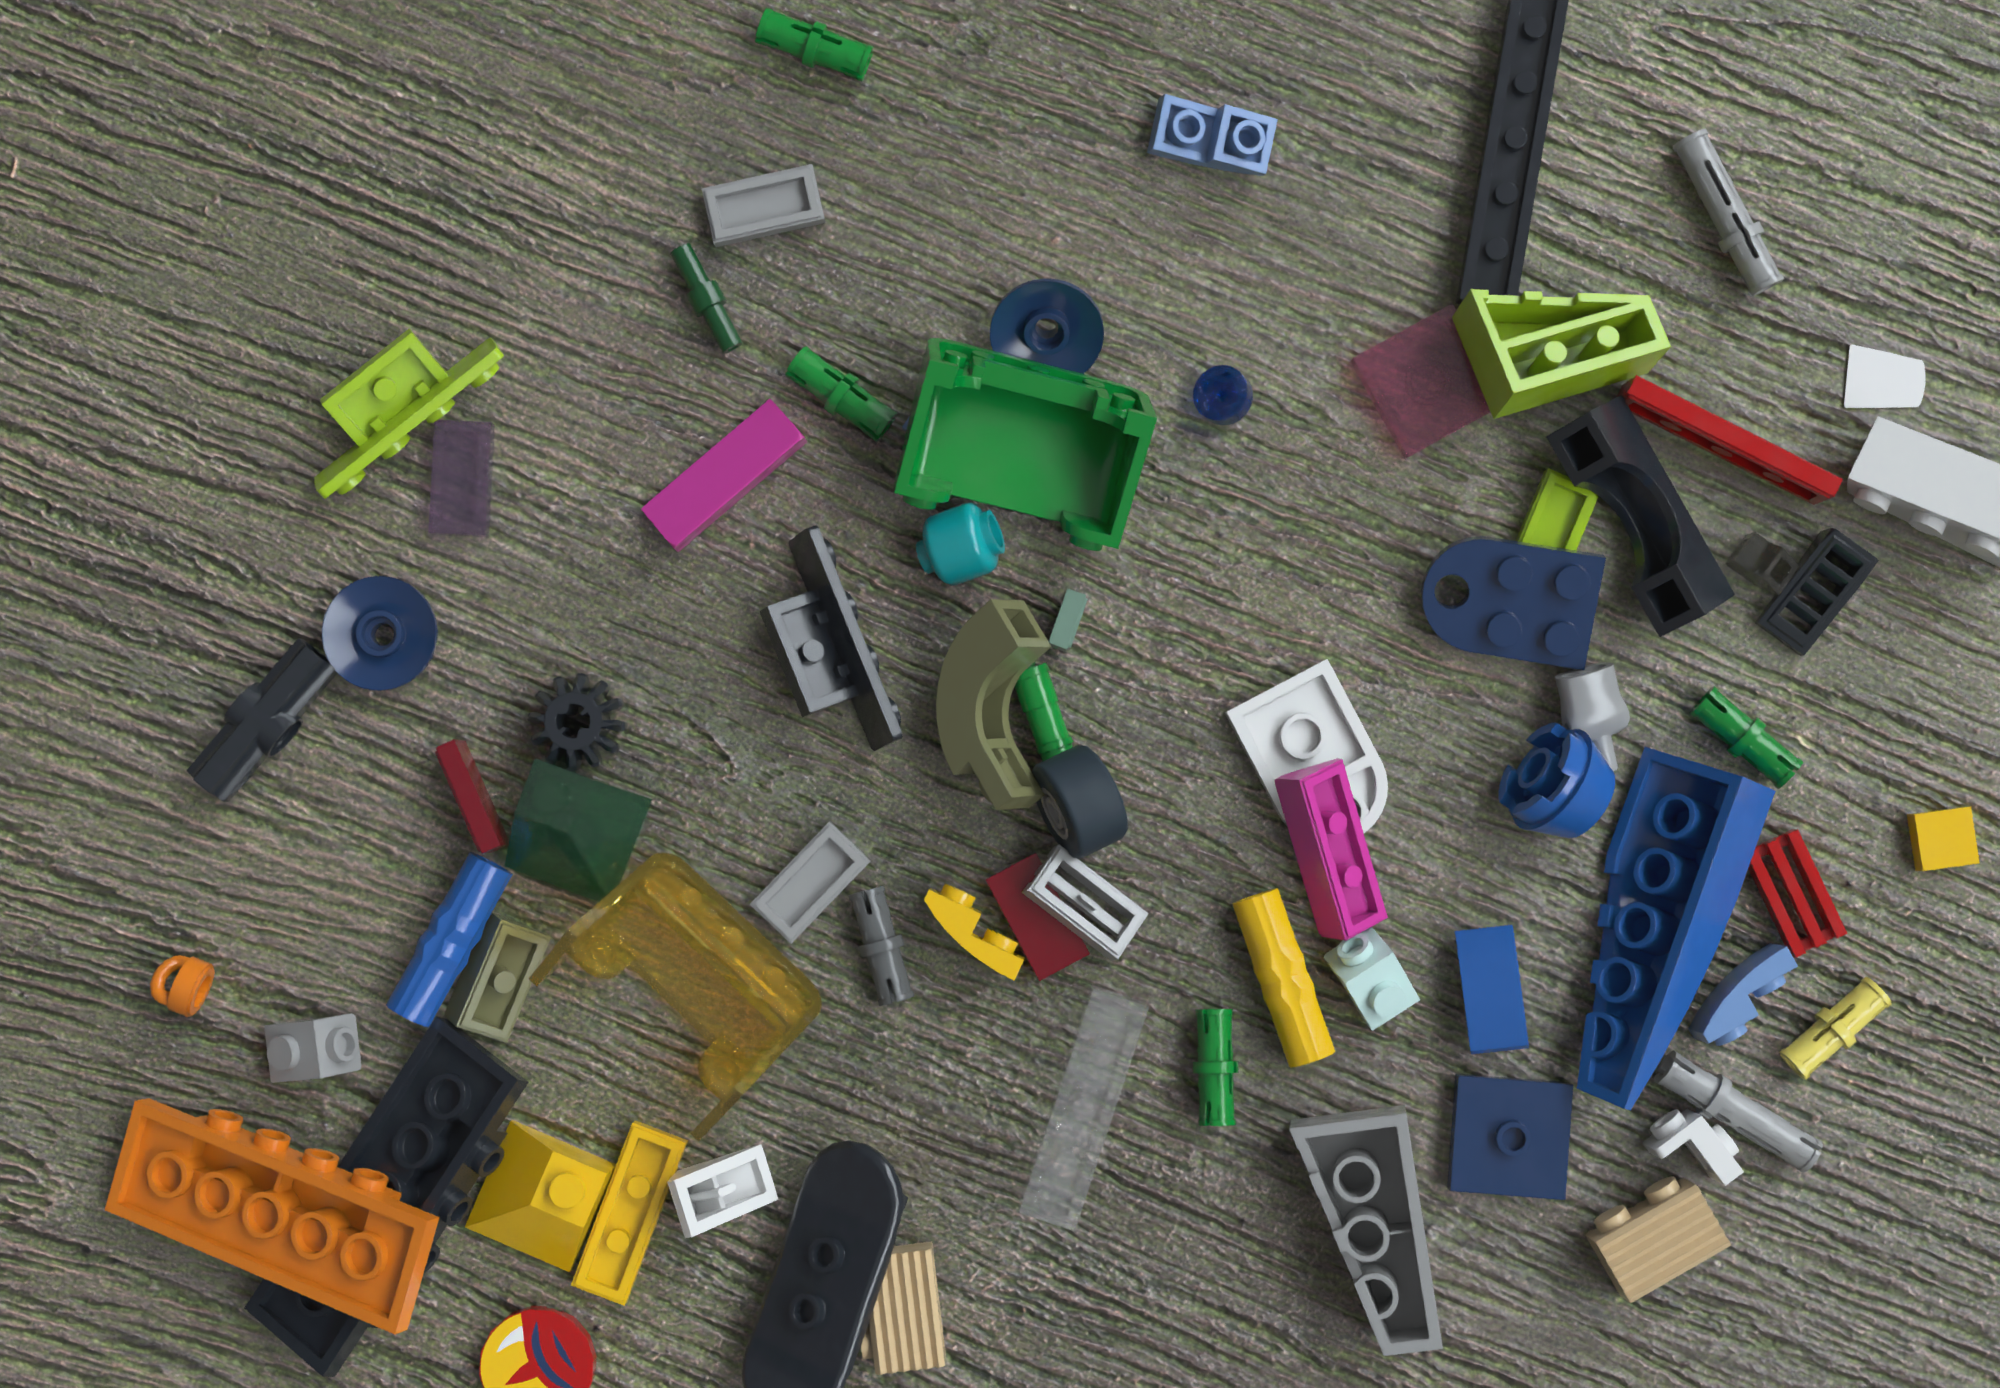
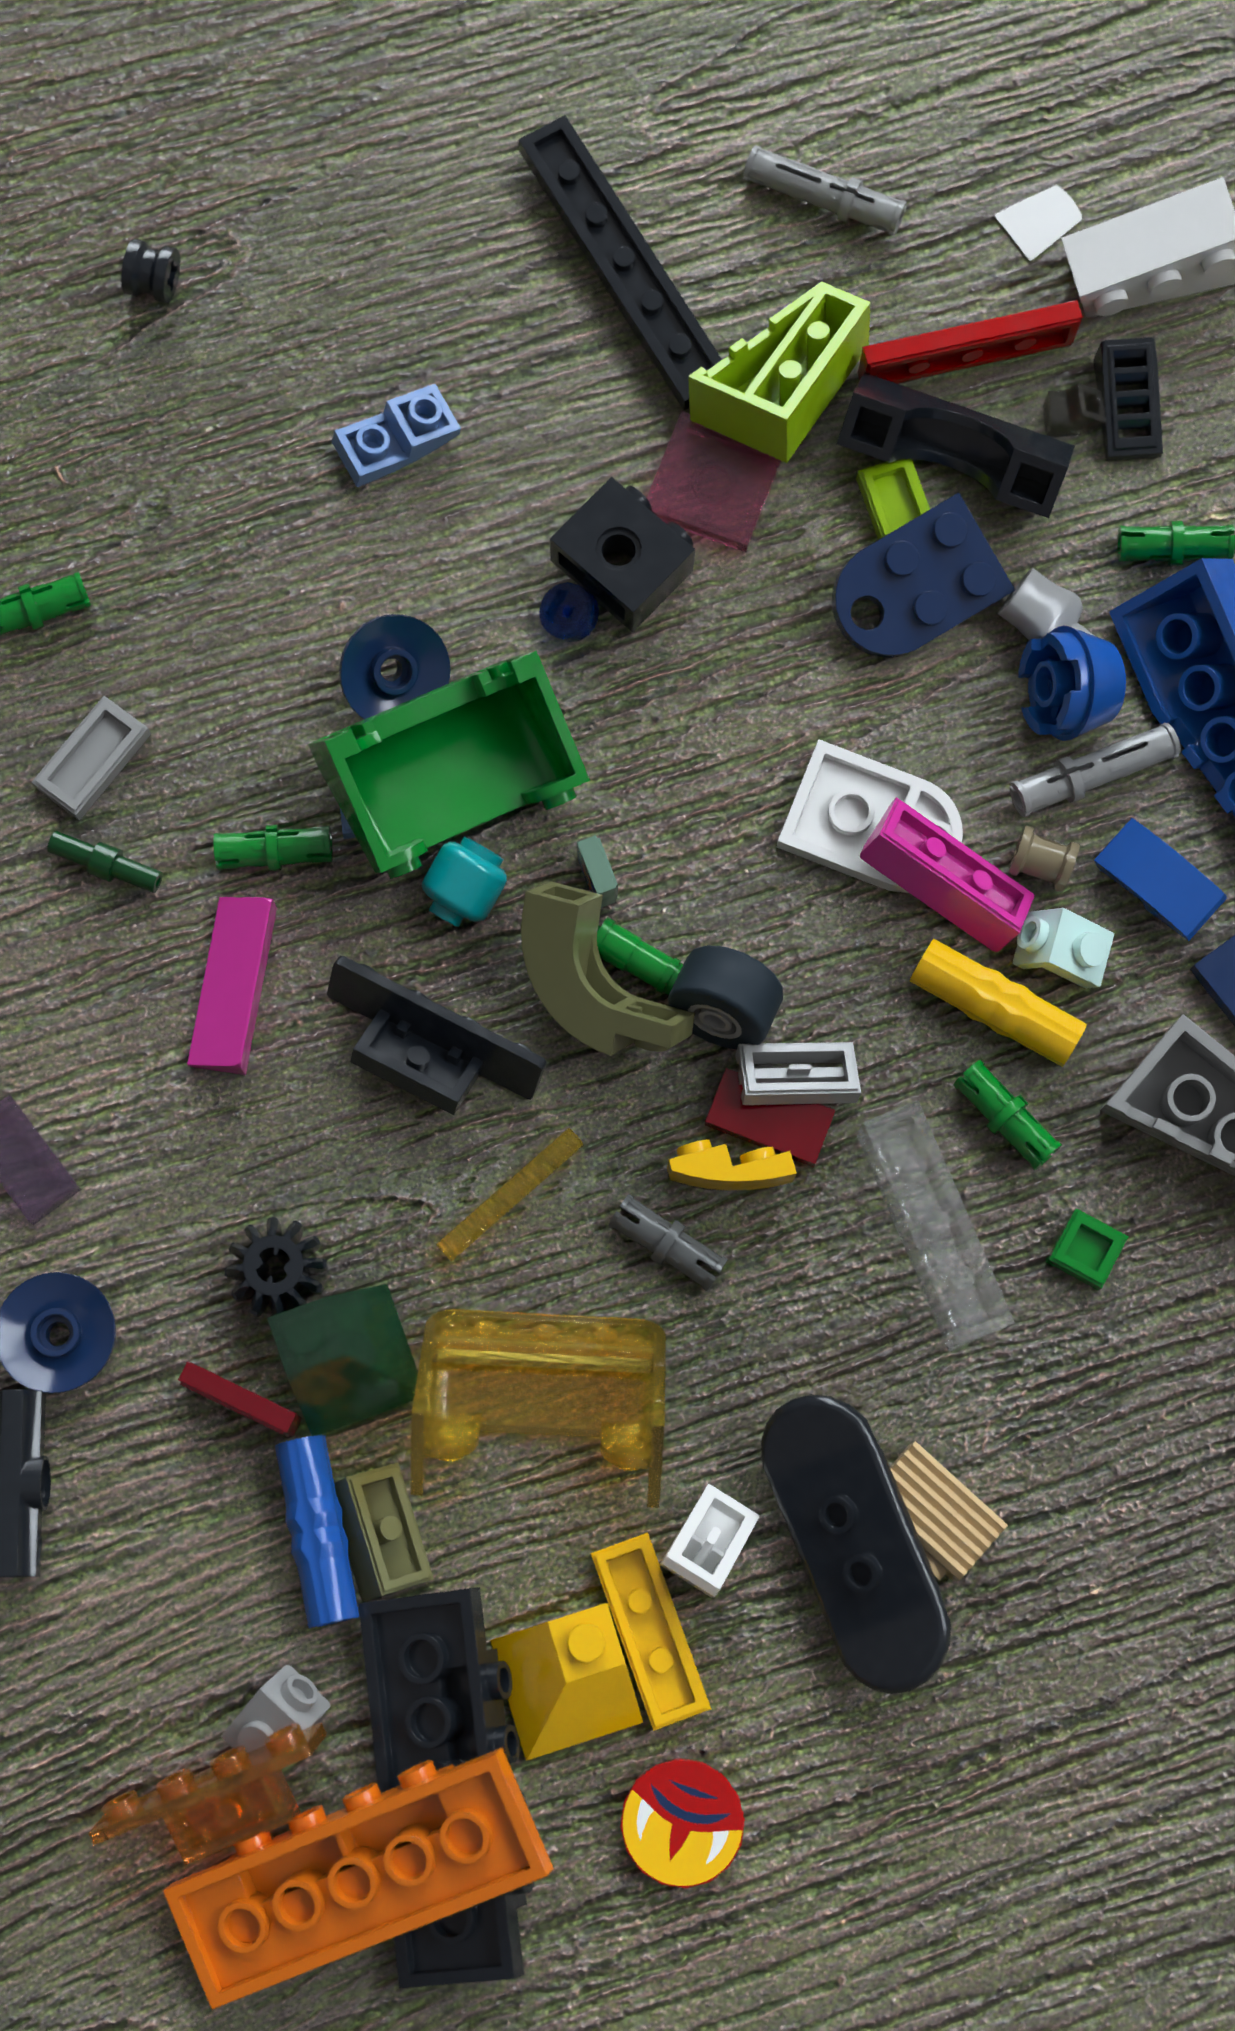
camera: 45 degrees left, 10 degrees down
(189, 986) = (131, 1755): orange tile -> none
(223, 1075) = (221, 1804): none -> clear orange bracket
(796, 809) = (509, 1194): none -> clear yellow bar
(810, 882) = (569, 1242): light grey tile -> none
(1187, 1214) = (1087, 1249): none -> green tile
(1323, 358) = (623, 522): none -> black brick
(1417, 898) = (1044, 858): none -> dark tan bush
(1497, 855) = (1072, 778): none -> light grey pin

